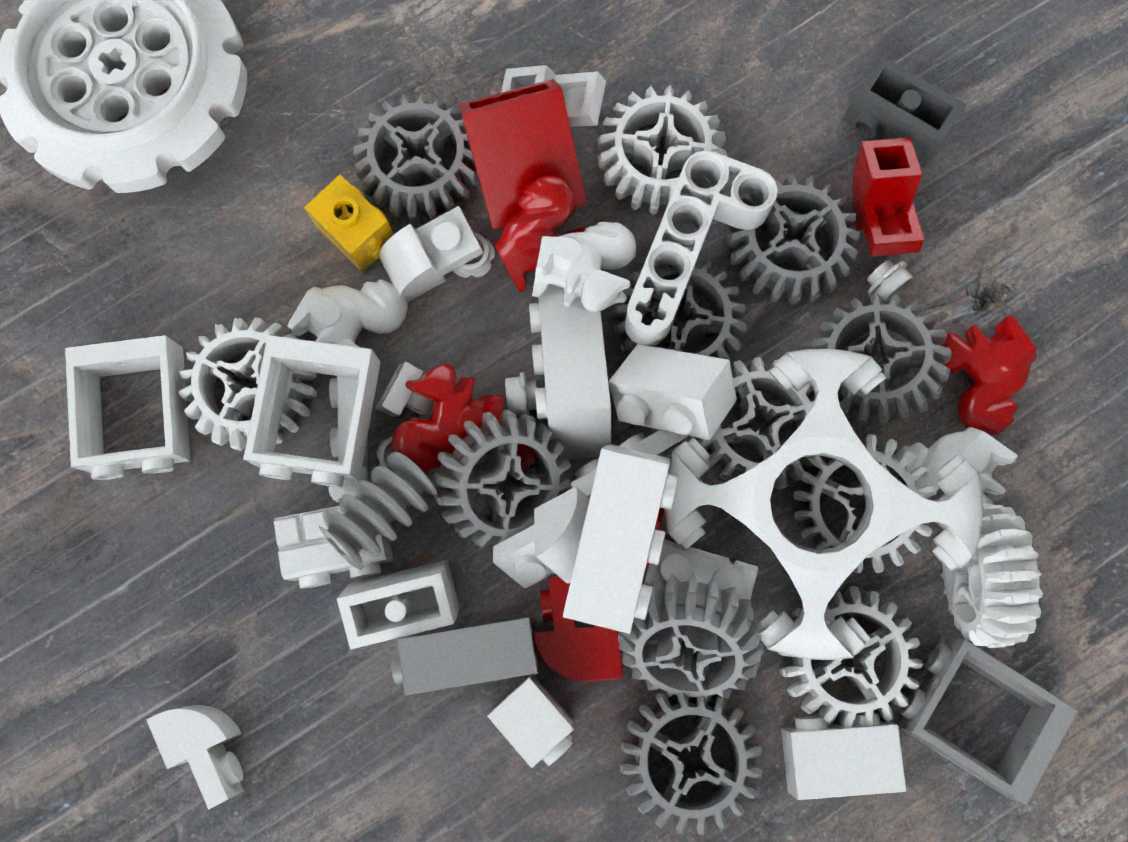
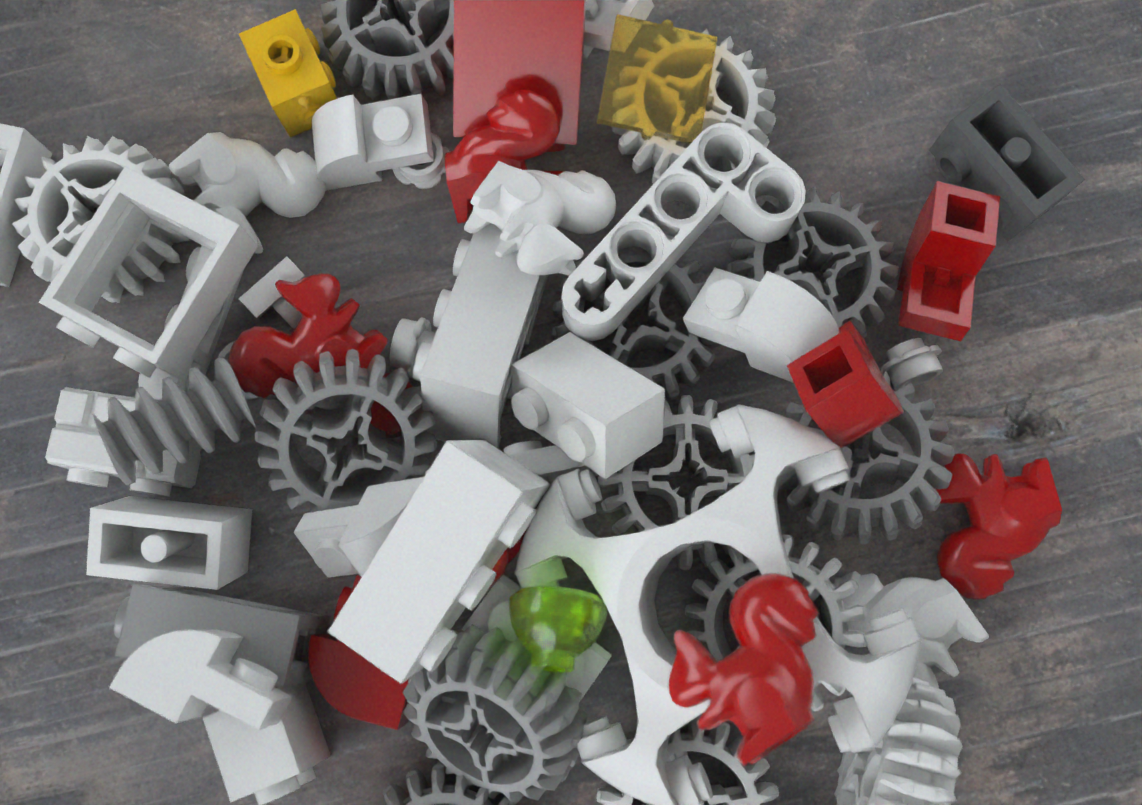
camera: 20 degrees right, 0 degrees up
(466, 682) = (192, 669): none -> white brick
(631, 136) = (656, 79): none -> clear yellow piece
(716, 555) = (556, 624): none -> clear neon green brick
(785, 285) = (763, 319): none -> white brick
(854, 311) = (844, 387): none -> red brick
(885, 538) = (766, 681): none -> red animal

